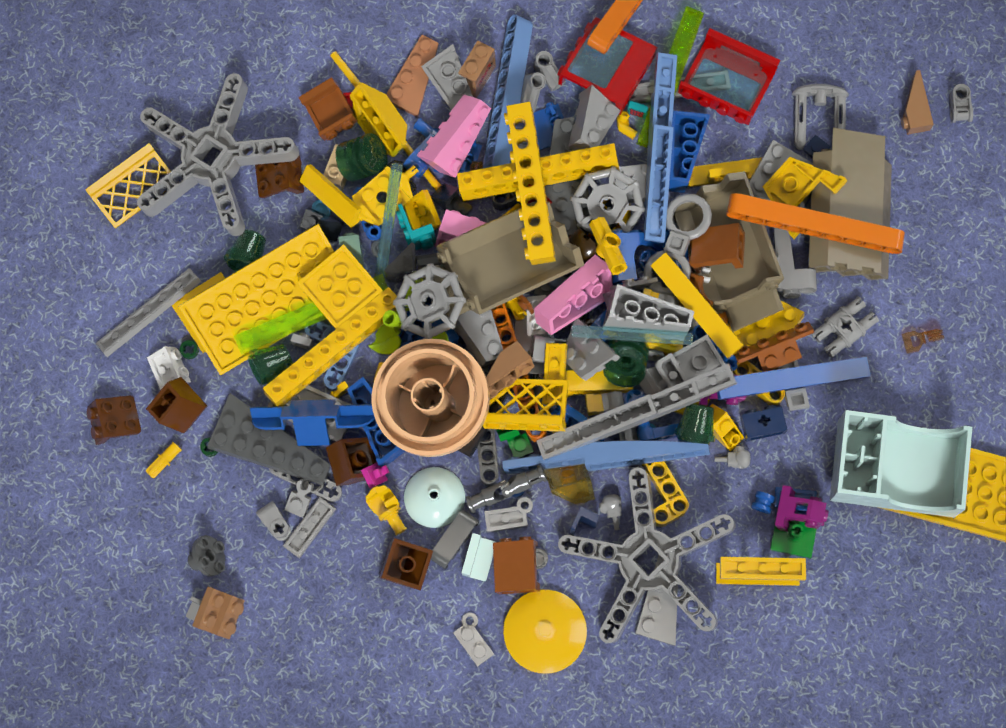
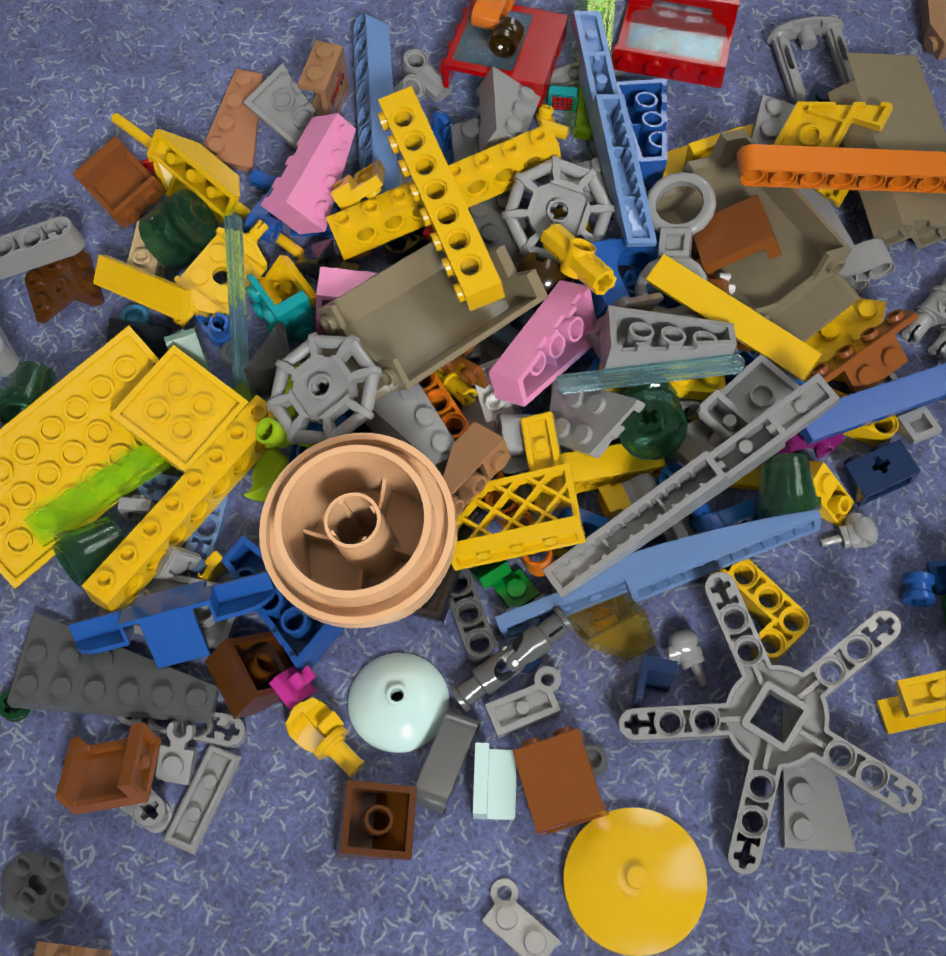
camera: 15 degrees left, 10 degrees down
(260, 500) = (109, 772): none -> dark orange panel
(319, 382) = (177, 561): none -> light grey tile
(484, 156) = (364, 184): none -> yellow plate
(606, 65) = (506, 37): none -> dark brown wheel

